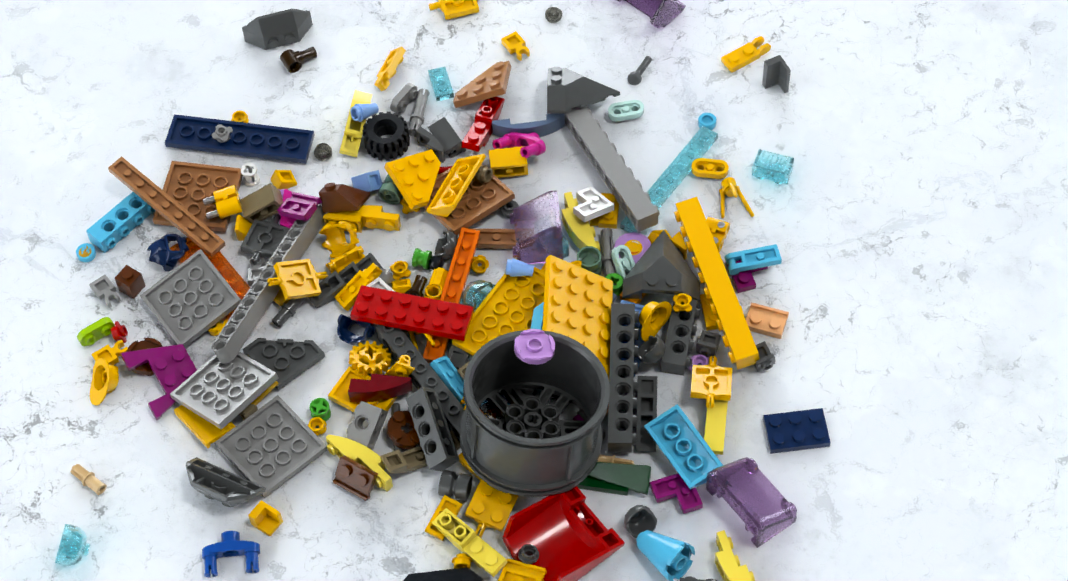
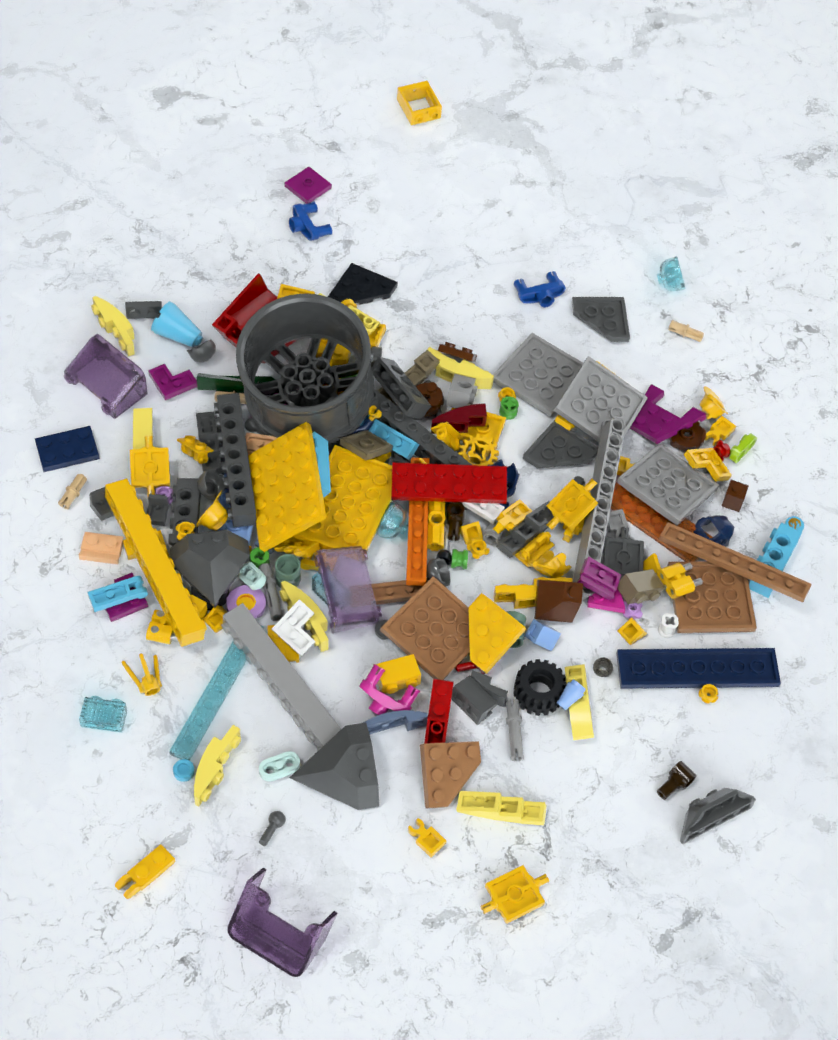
camera: 160 degrees right, 0 degrees up
(105, 290) = (757, 489): light grey plate -> none
(139, 321) = (710, 460): none -> yellow plate
(171, 510) = (604, 315): none -> dark grey plate
(220, 484) = (569, 324): dark grey wedge -> none
(222, 133) = (717, 665): light grey plate -> none
(265, 518) = (523, 321): yellow panel -> none
(389, 67) = (566, 783): yellow hinge -> none
(403, 98) = (538, 736): light grey plate -> none
(441, 83) = (501, 775): clear light blue plate -> none
(453, 60) = (495, 807): none -> light yellow slope
(455, 185) = (444, 628): yellow slope -> none
(484, 174) = (418, 643): dark tan plate -> none
(484, 264) = (399, 562): yellow plate -> none
(518, 268) = (356, 538): light blue cone -> none
(534, 346) = (313, 387): lavender tile -> none
(553, 14) = (392, 900): clear smoke plate -> none
(659, 396) = (195, 448): none -> yellow hinge
(683, 446) = (170, 406): medium azure slope -> none
(684, 115) = (211, 764): none -> light yellow slope
(709, 168) = (174, 703): yellow plate -> none
(776, 72) = (106, 831): dark grey panel -> none
(792, 378) = (72, 491): none -> tan axle

